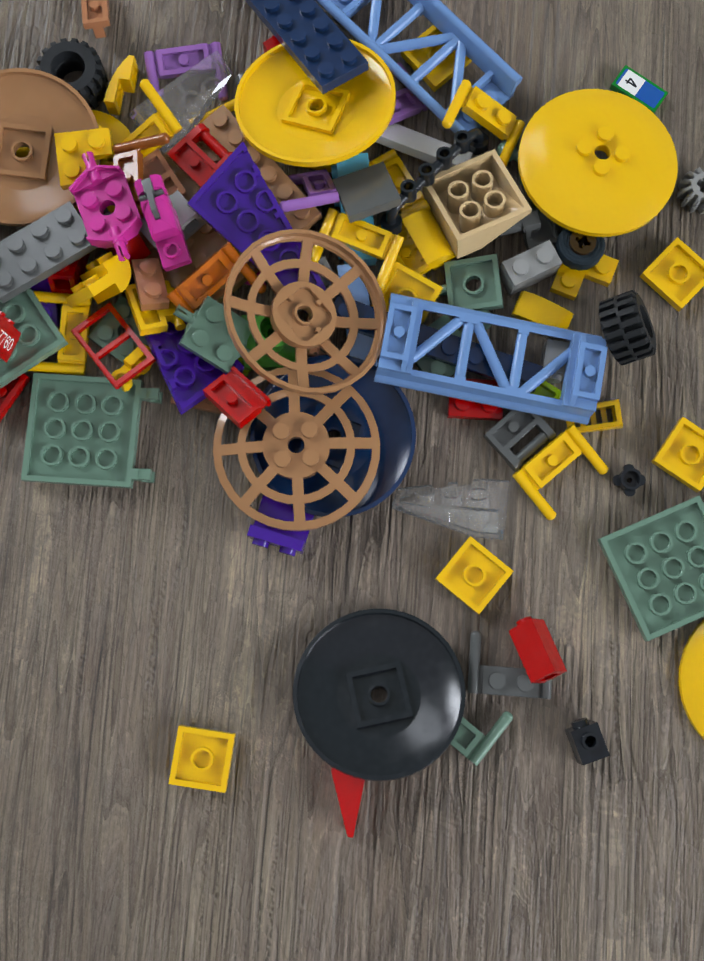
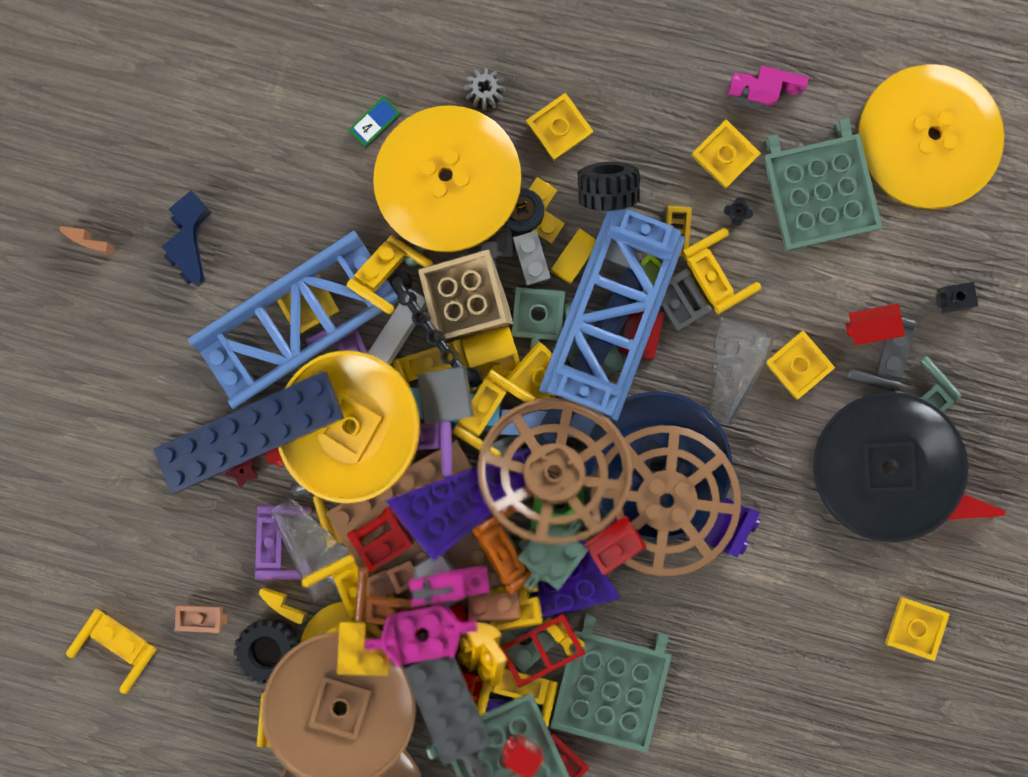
camera: 75 degrees left, 5 degrees up
(249, 31) = (241, 478): none -> dark red plate

